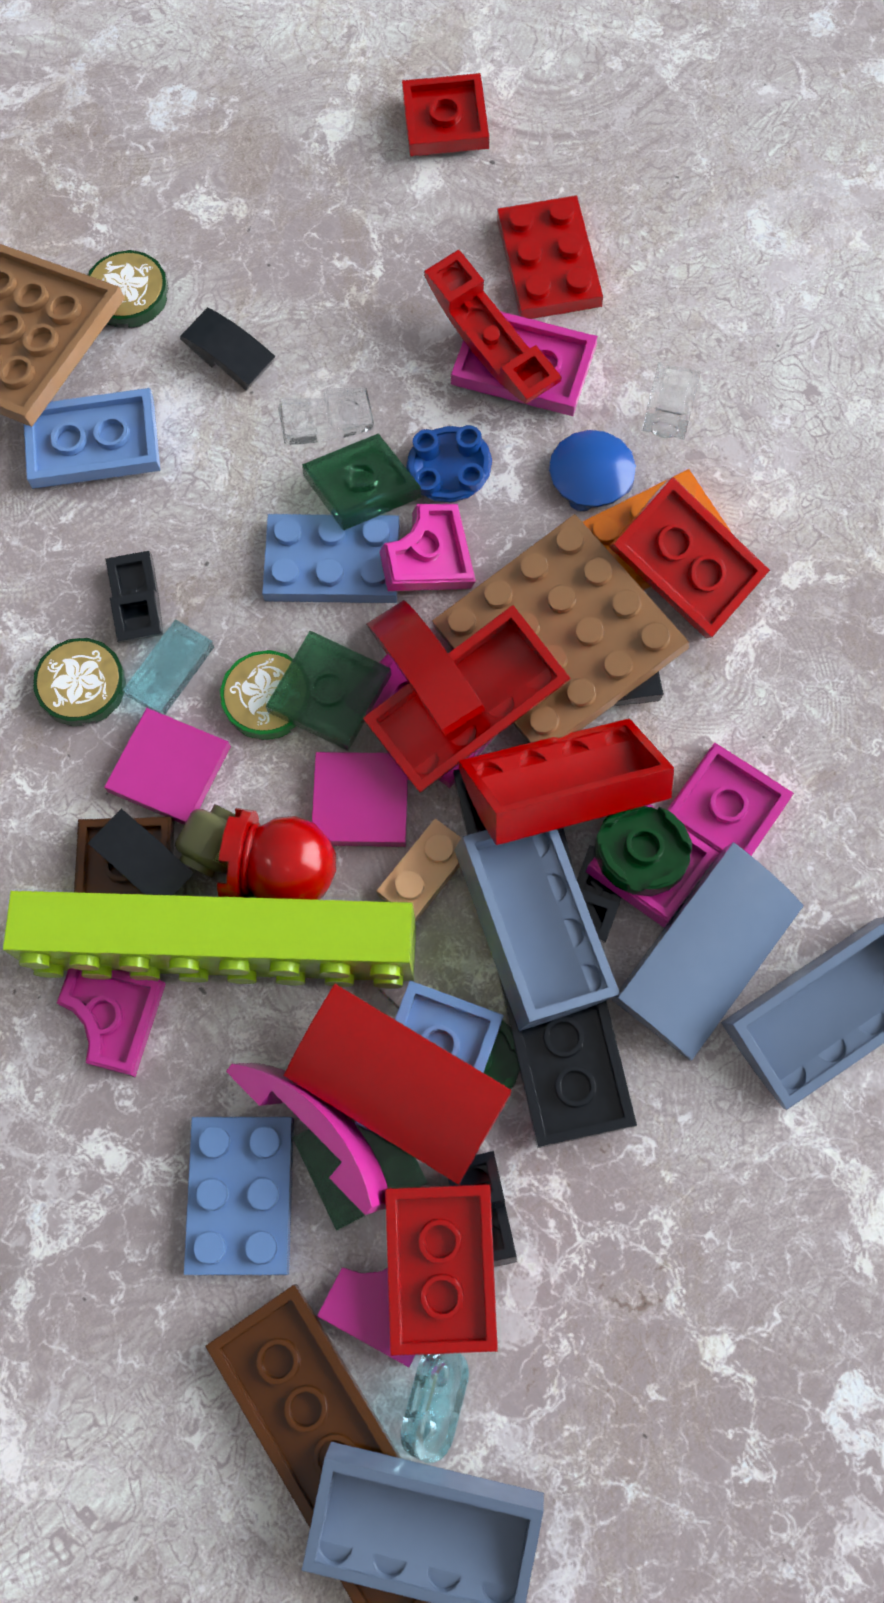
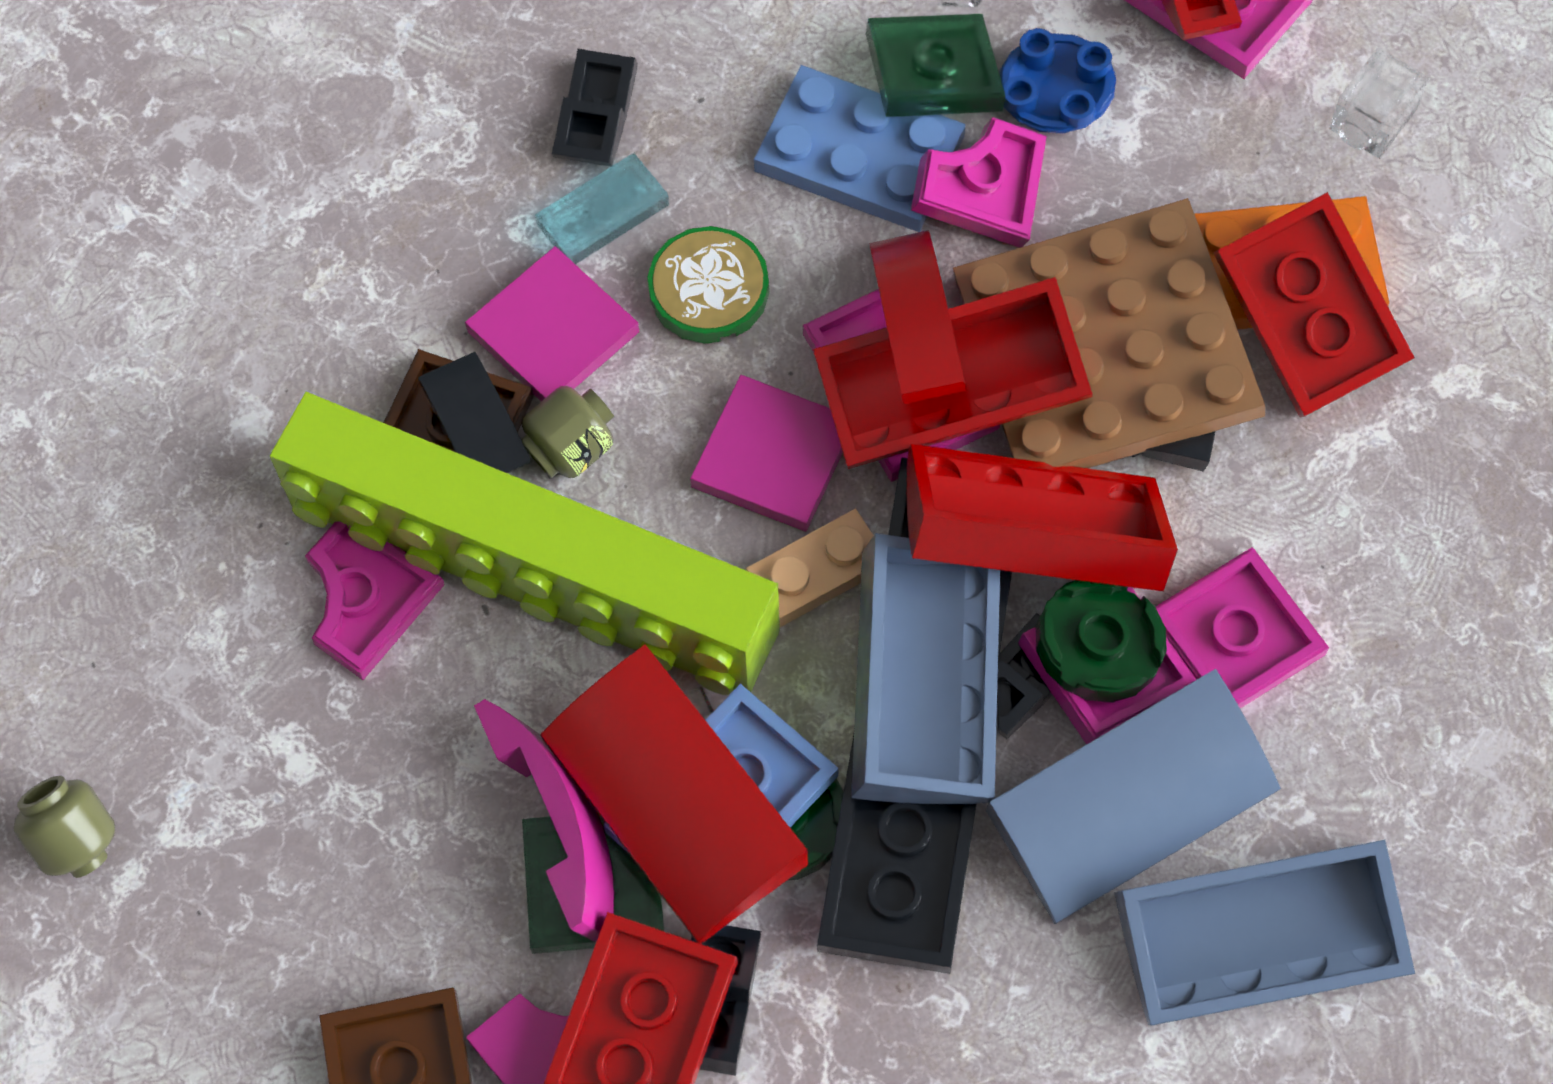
camera: 20 degrees right, 5 degrees down
(79, 681) = (486, 186): tile -> none
(239, 1196) = (431, 865): medium blue plate -> none
(275, 859) = (637, 474): red tile -> none
(328, 690) = (787, 304): clear green tile -> none
(592, 469) = (1240, 154): blue dish -> none

